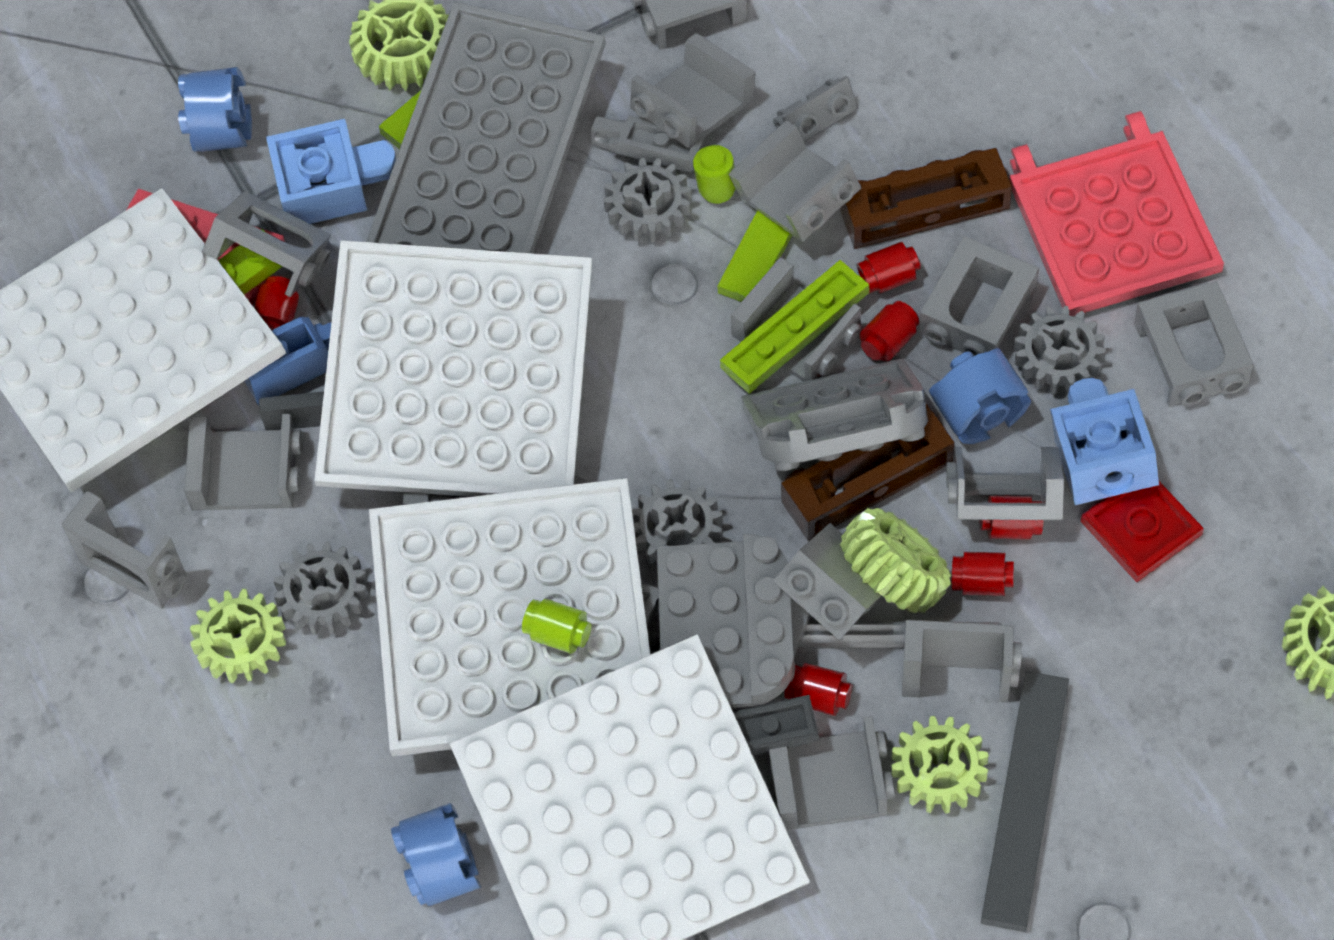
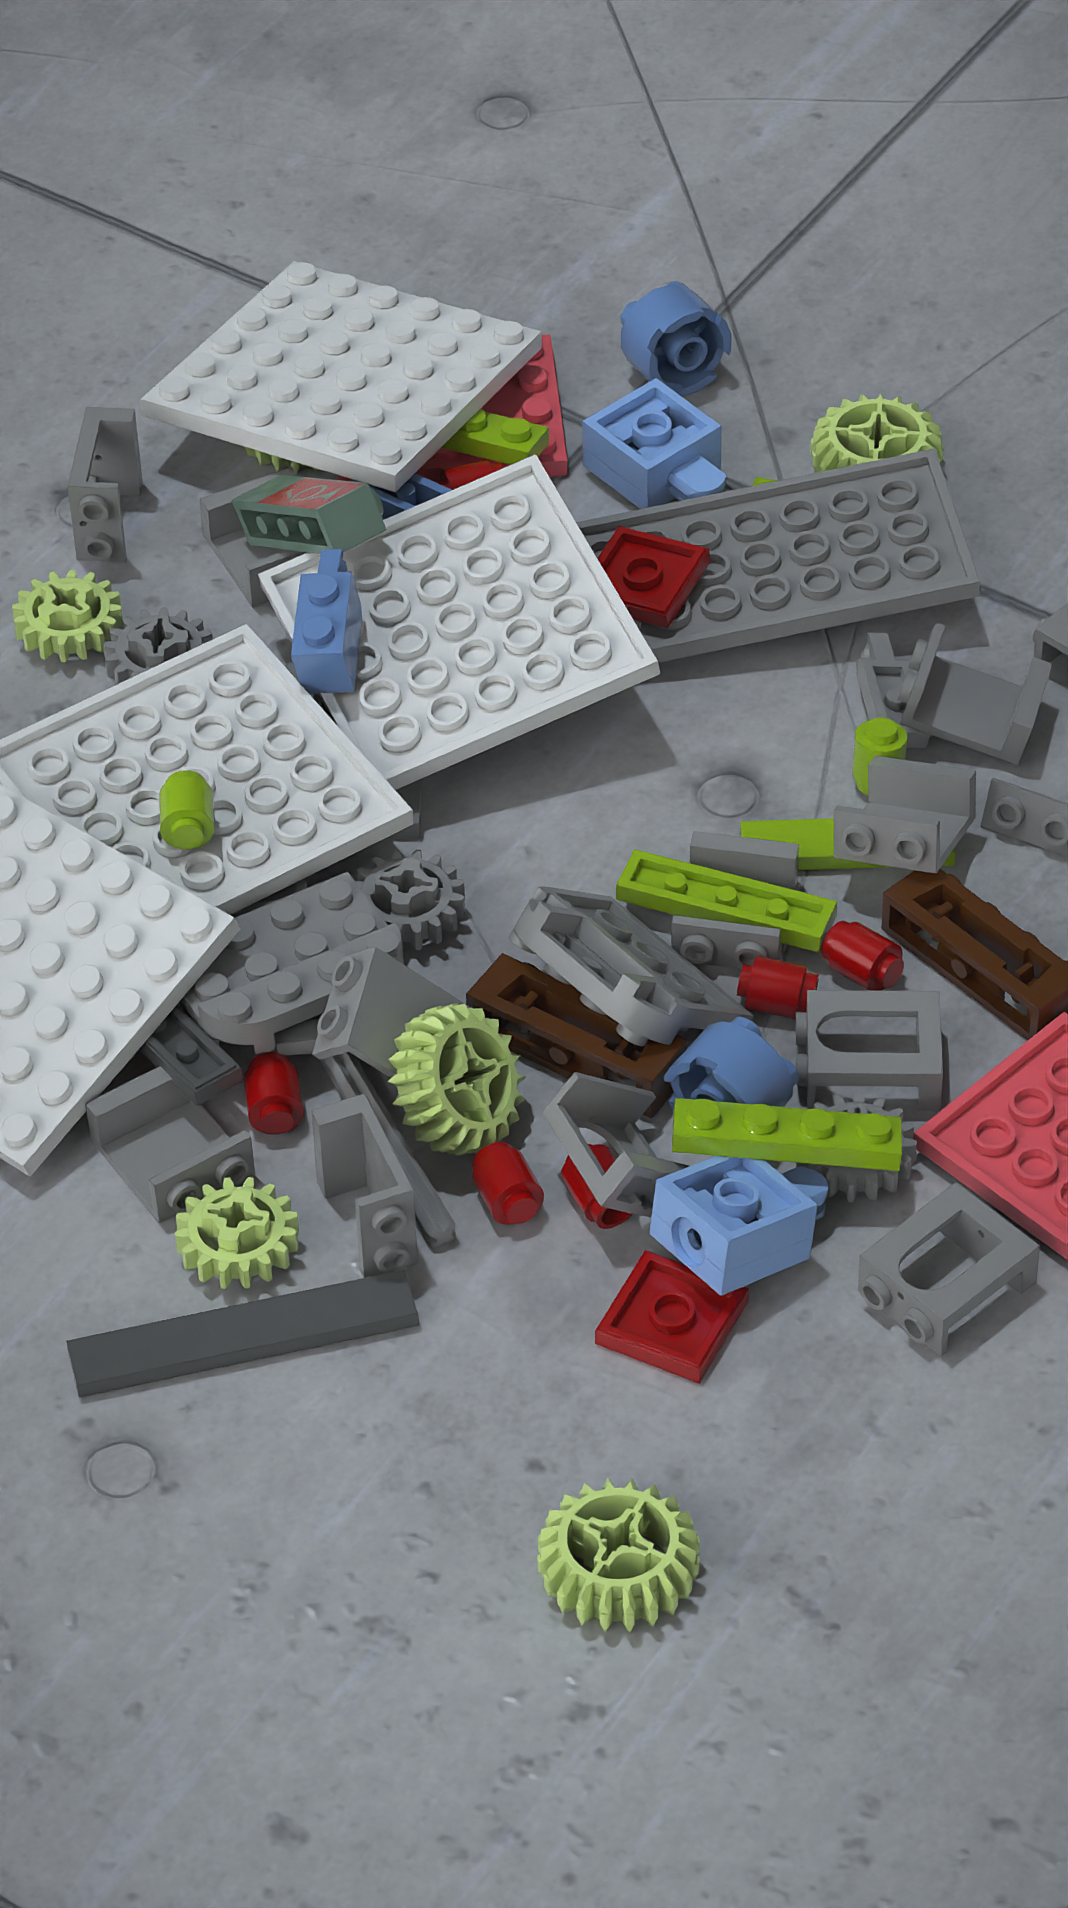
camera: 60 degrees right, 15 degrees down
(233, 226) = (531, 396): light grey panel -> none
(281, 419) = (309, 514): none -> sand green brick
(419, 452) = (327, 627): none -> medium blue hinge
(455, 222) = (652, 573): none -> red tile
(666, 192) = (809, 719): light grey gear -> none
(1059, 380) = (787, 1134): none -> lime plate

